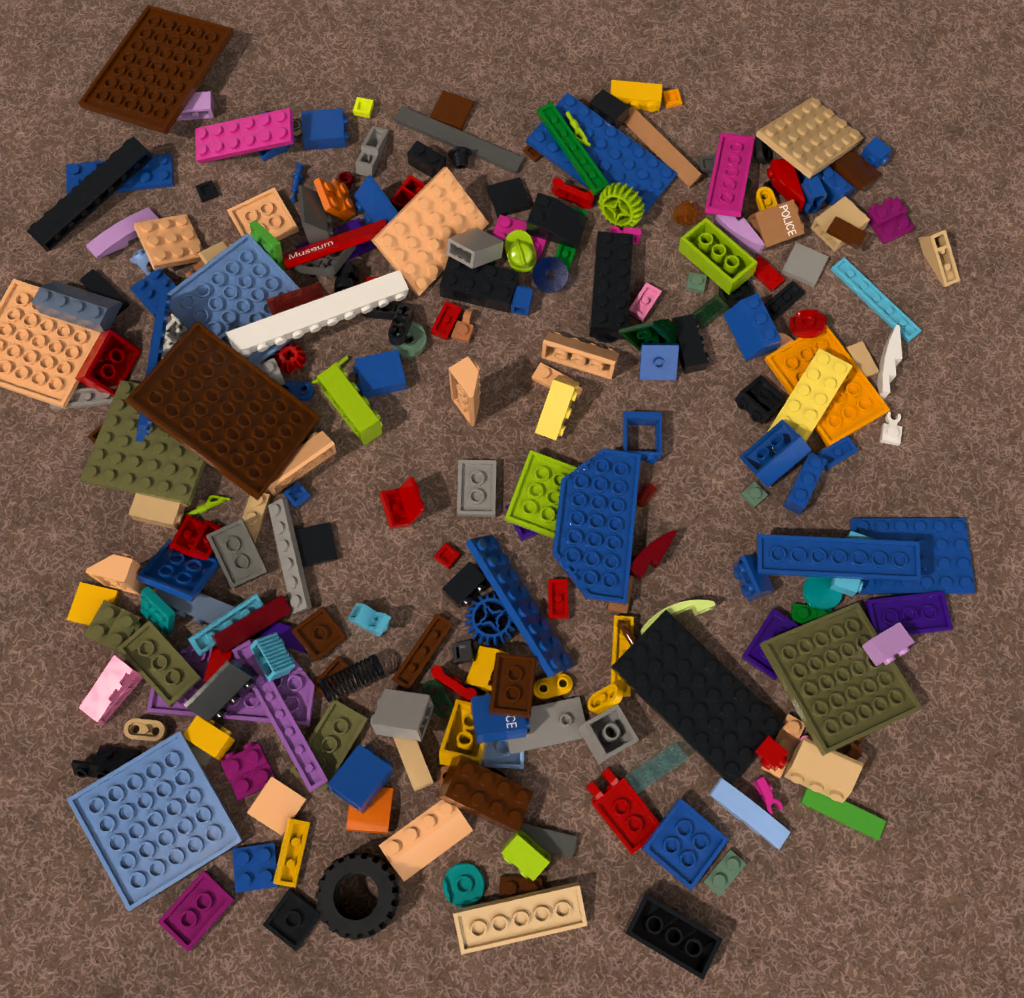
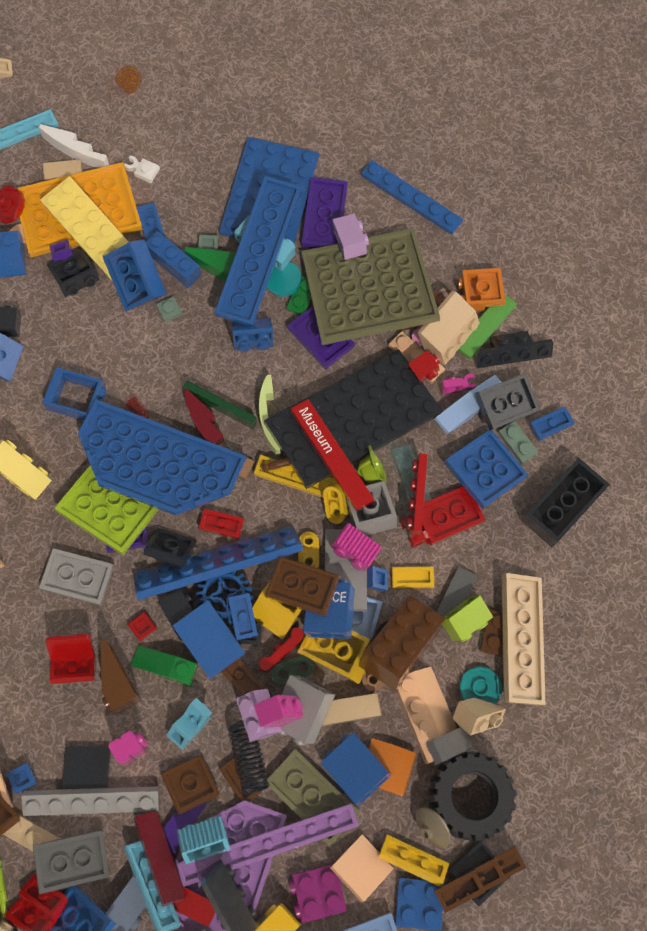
camera: 80 degrees left, 0 degrees up
(286, 920) = (480, 879): none -> reddish brown slope
(321, 862) = (433, 827): none -> dark tan dish
(337, 572) = (128, 747): none -> dark pink brick
(388, 676) = (249, 716): none -> lavender brick
(392, 545) = (116, 685): none -> reddish brown slope
(392, 691) = (279, 711): none -> dark pink brick
(397, 860) = (449, 745): none -> dark grey slope
(416, 585) = (165, 665): none -> green slope
(434, 886) = (478, 715): none -> tan slope
(446, 615) = (208, 639): none -> blue tile
(473, 638) = (242, 616): none -> blue plate
(522, 558) = (170, 547): none -> black tile
(543, 758) = (377, 578): none -> blue plate
(555, 793) = (412, 577): none -> yellow tile
(565, 728) = (355, 547): none -> dark pink brick
(625, 777) = (416, 503): none -> red plate
(648, 682) = (332, 455): none -> red tile
(651, 727) = (371, 468): none -> lime piece
(672, 567) = (221, 405): none -> dark green tile
(755, 905) = (551, 423): none -> blue plate
(762, 850) = (507, 401): none -> plate
(777, 382) = (61, 250): none -> dark purple plate
(816, 520) = (213, 261): none -> green slope
(826, 846) = (513, 349): none -> black bracket
(832, 512) = (208, 242): none -> sand green plate
(881, 797) = (482, 288): none -> orange plate
(961, 701) = (412, 197): none -> blue plate
(981, 389) = (129, 79): none -> clear orange piece

